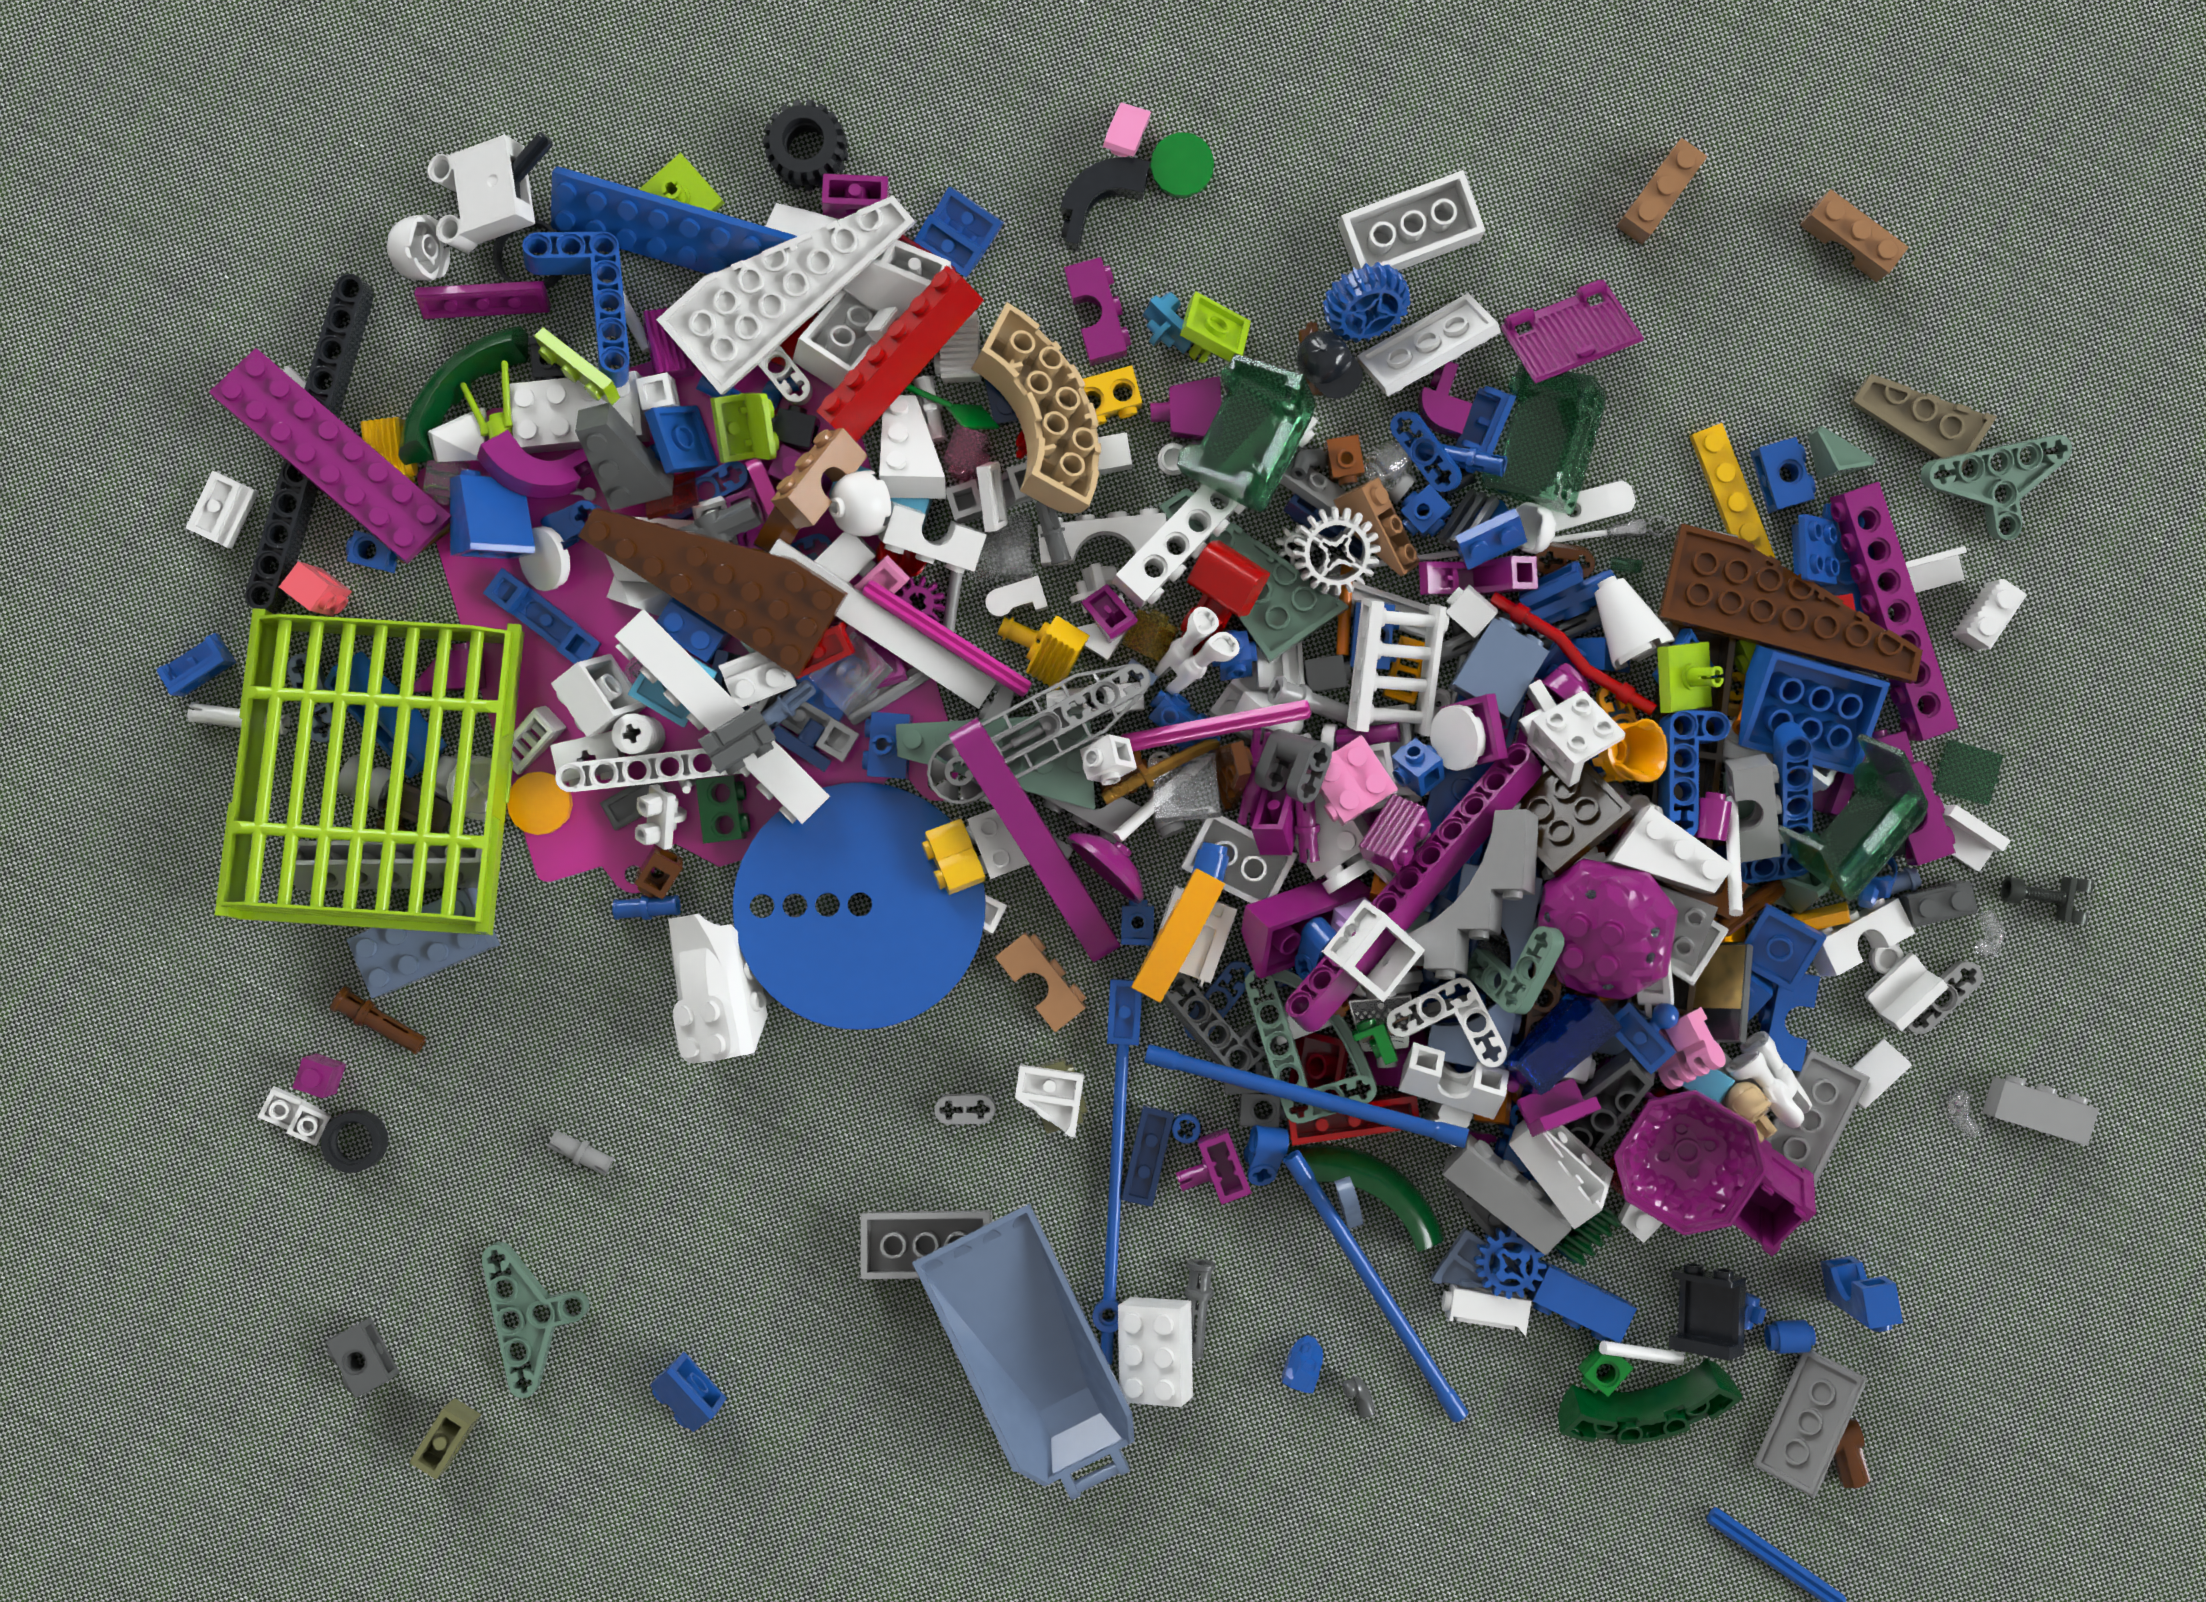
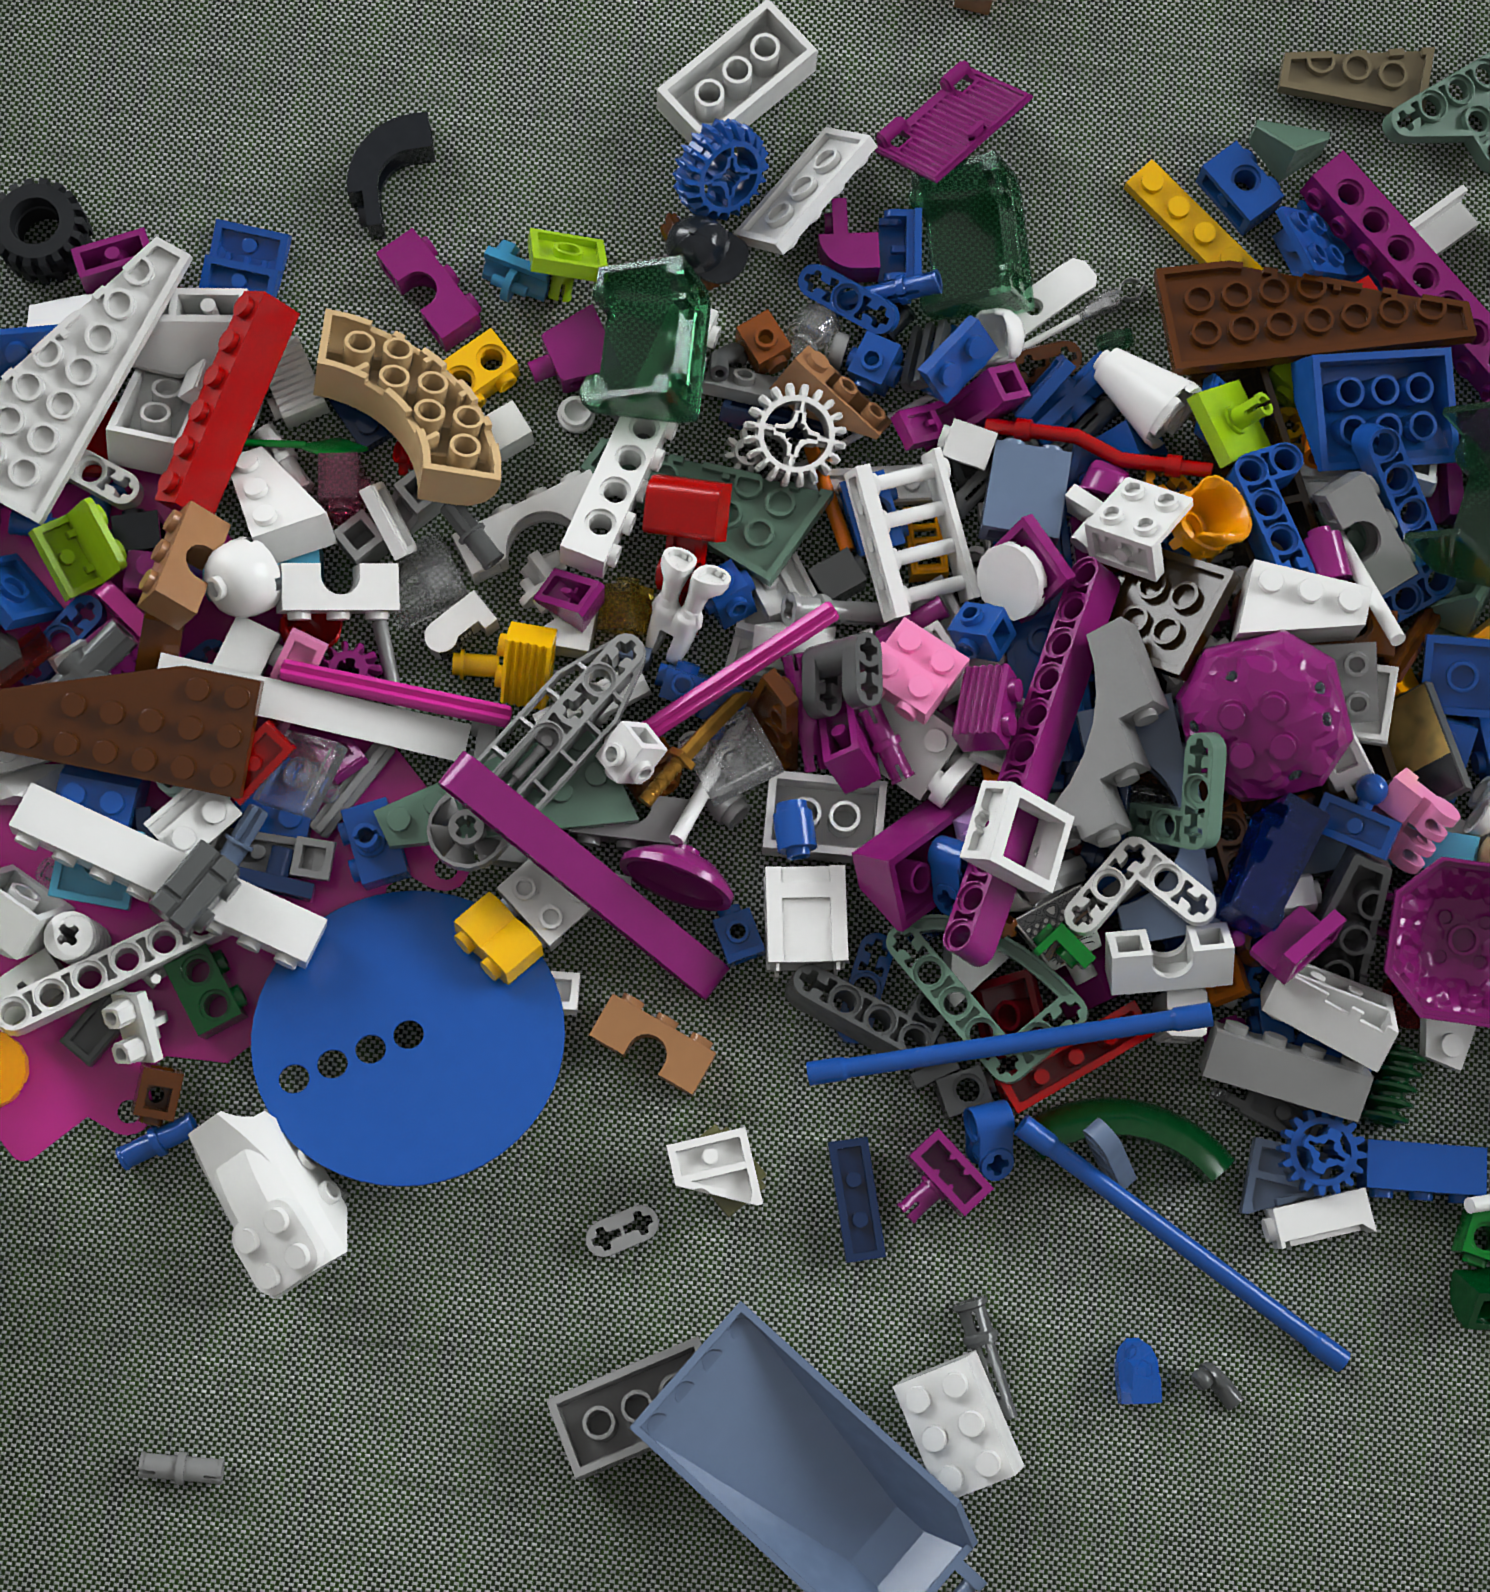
camera: 25 degrees left, 10 degrees down
(1123, 1031) = (770, 1066): blue bar -> none
(1126, 130) = (389, 91): bright pink slope -> none
(1178, 935) = (789, 916): light orange slope -> none
(1182, 165) = (464, 108): green tile -> none
(1196, 1129) = (900, 1149): blue bush -> none

